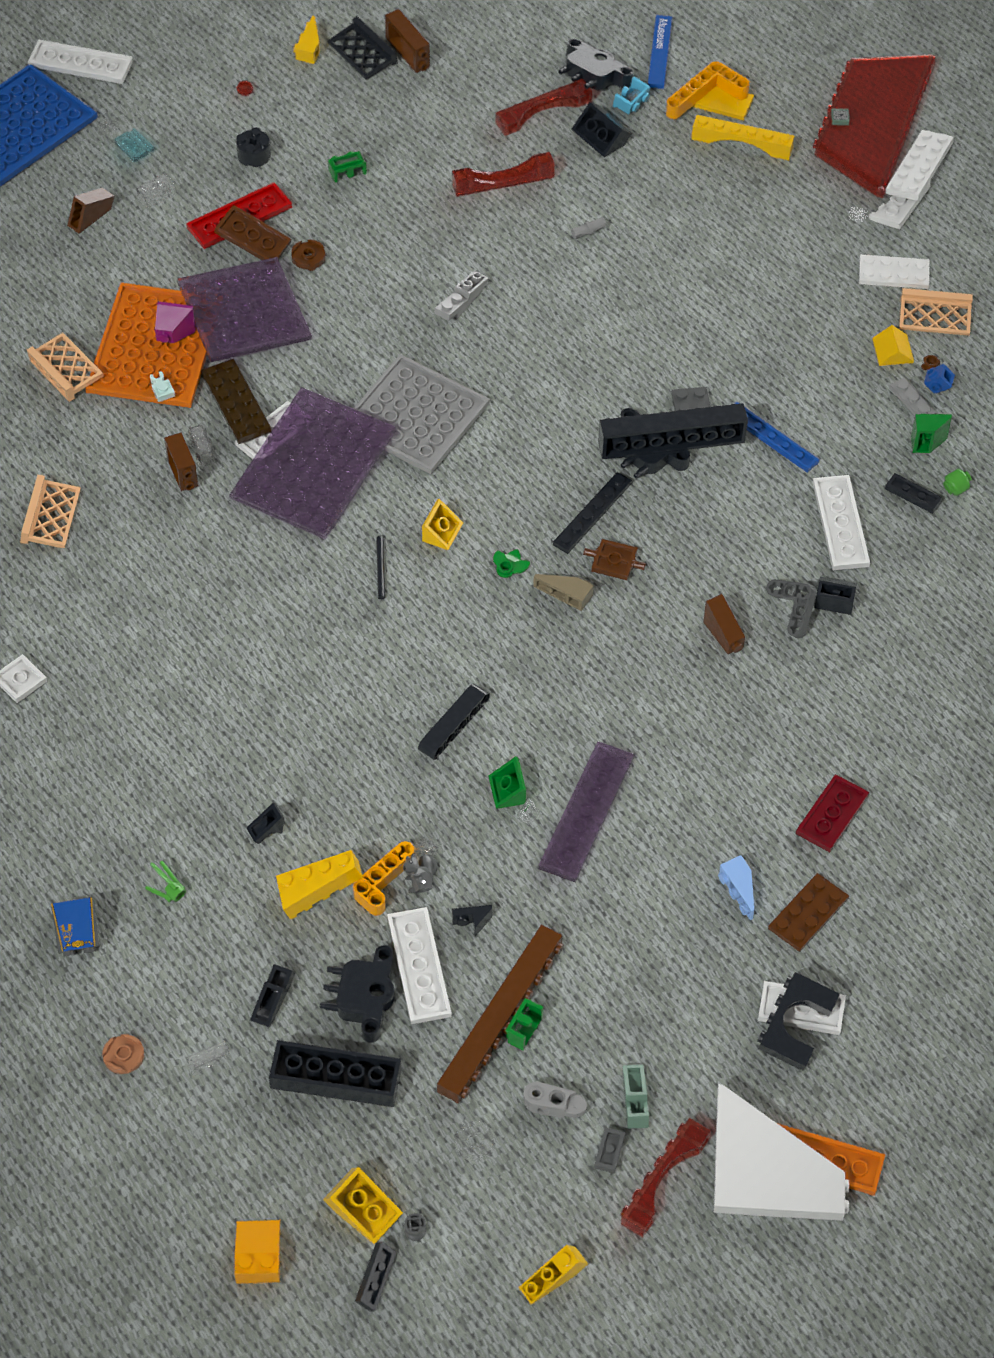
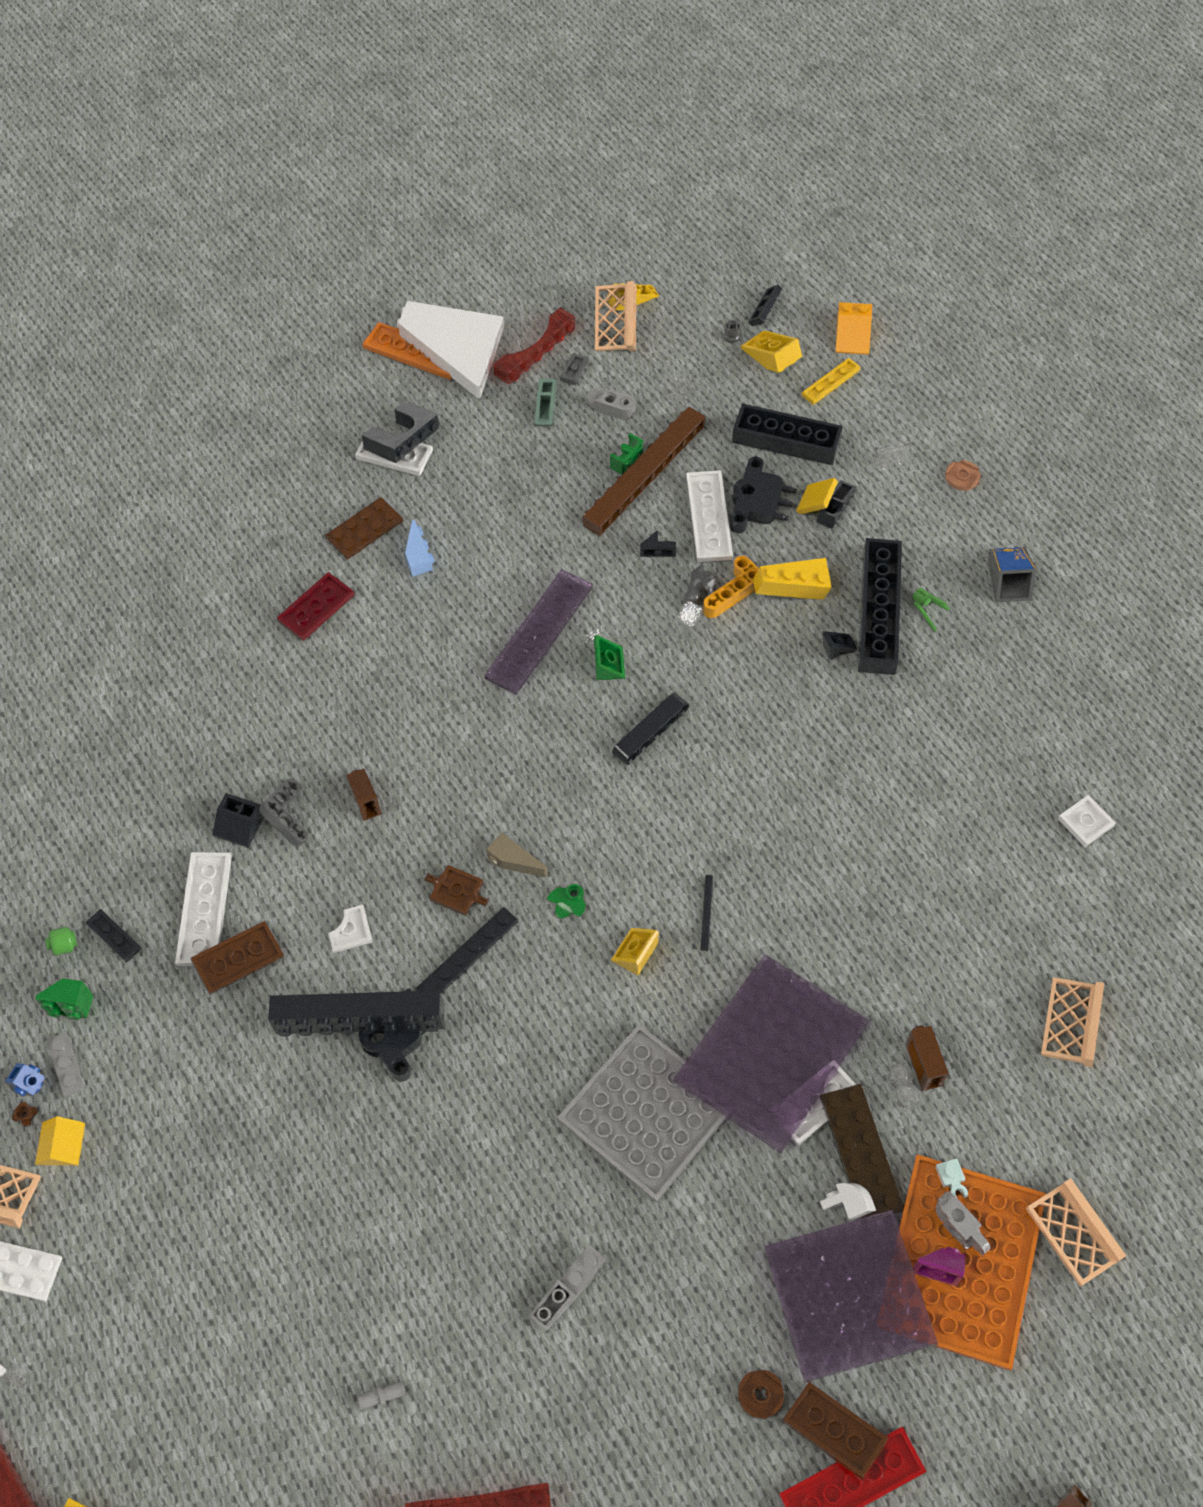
camera: 170 degrees left, 5 degrees up
(156, 354) = (961, 1223): none -> light grey piece
(221, 869) = (880, 606): none -> black brick
(242, 362) = (853, 1196): none -> white brick
(284, 1172) = (830, 381): none -> yellow tile
(296, 993) = (817, 496): none -> yellow tile
(552, 1219) = (630, 317): none -> light nougat fence
(690, 398) = (321, 1090): dark grey plate -> none
(700, 521) = (352, 931): none -> white tile
(780, 442) = (245, 1036): blue tile -> none
(794, 481) = (237, 957): none -> reddish brown plate

